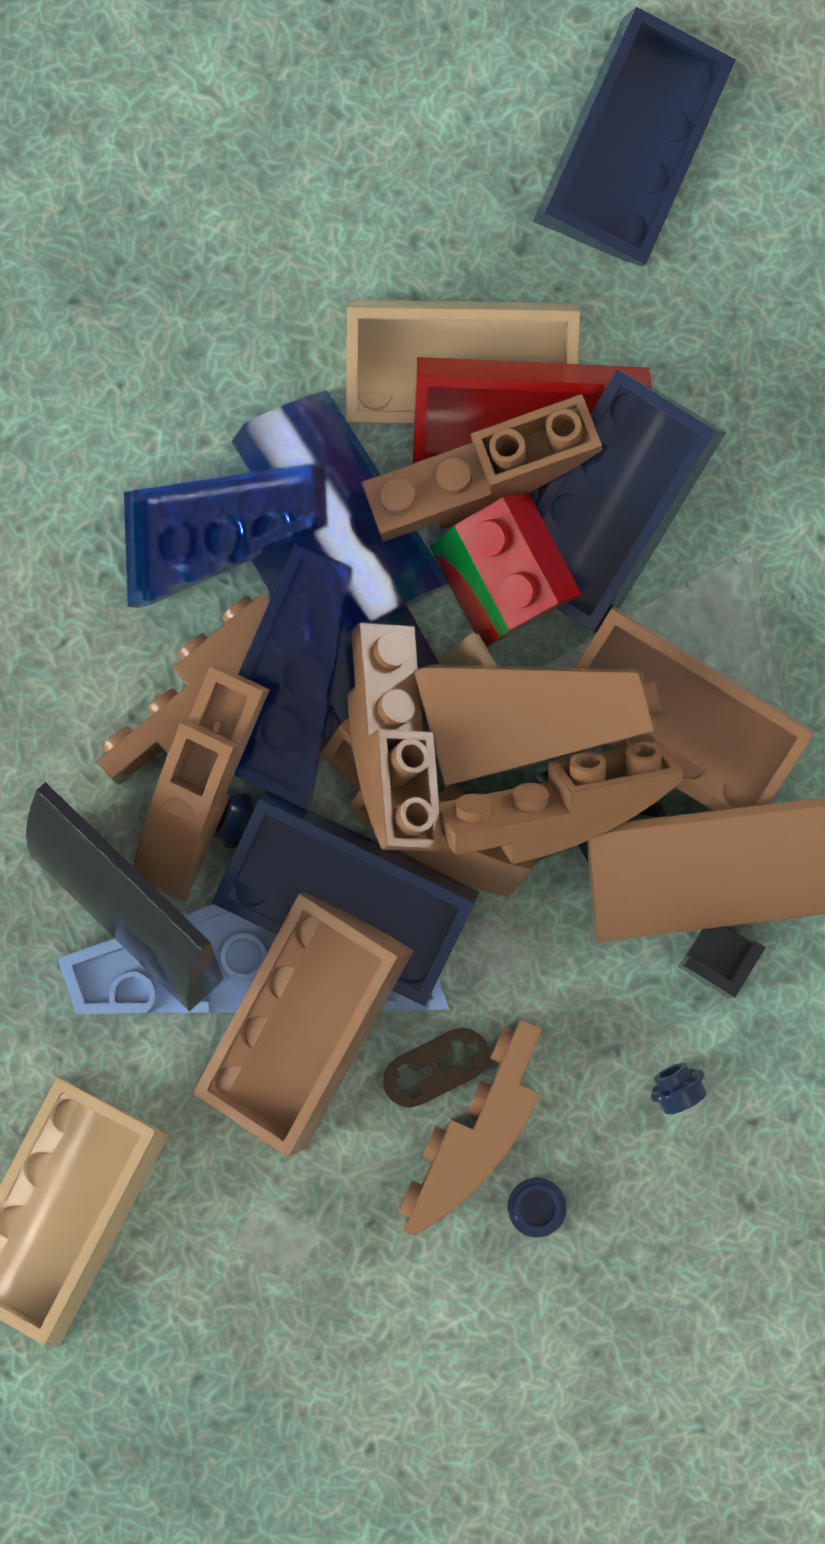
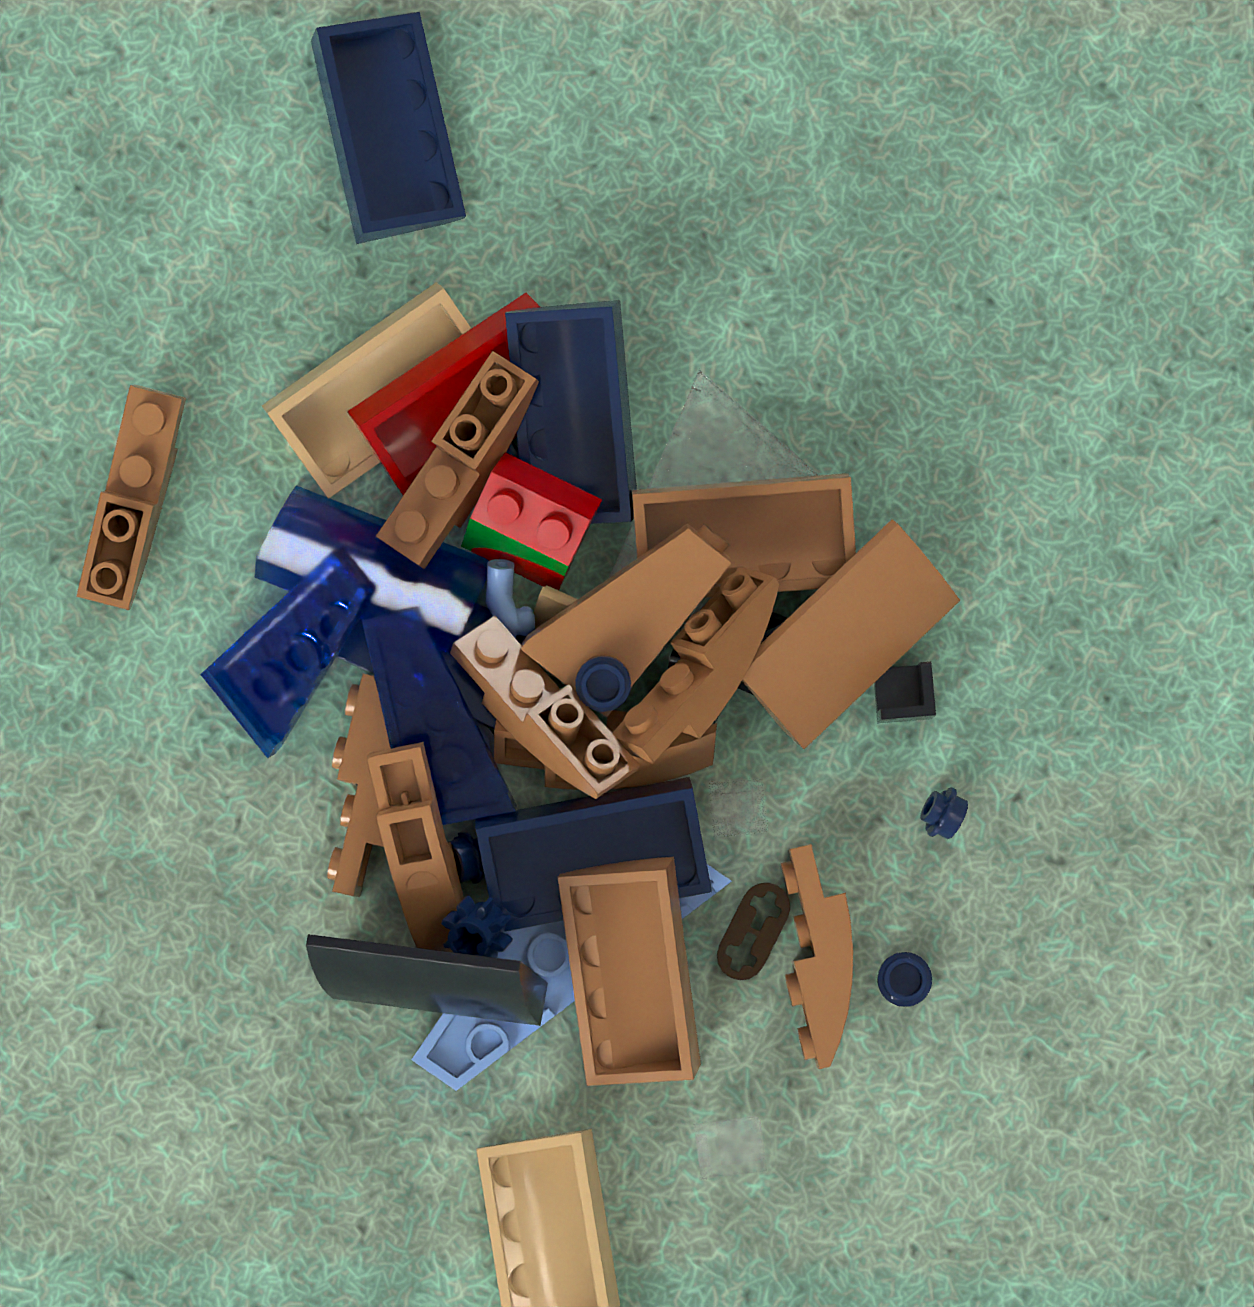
camera: 30 degrees left, 0 degrees up
(179, 297) = (132, 497): none -> medium nougat slope
(196, 887) = (477, 928): none -> dark blue gear
(429, 618) = (500, 599): none -> light blue arm
(463, 753) = (603, 683): none -> dark blue plate

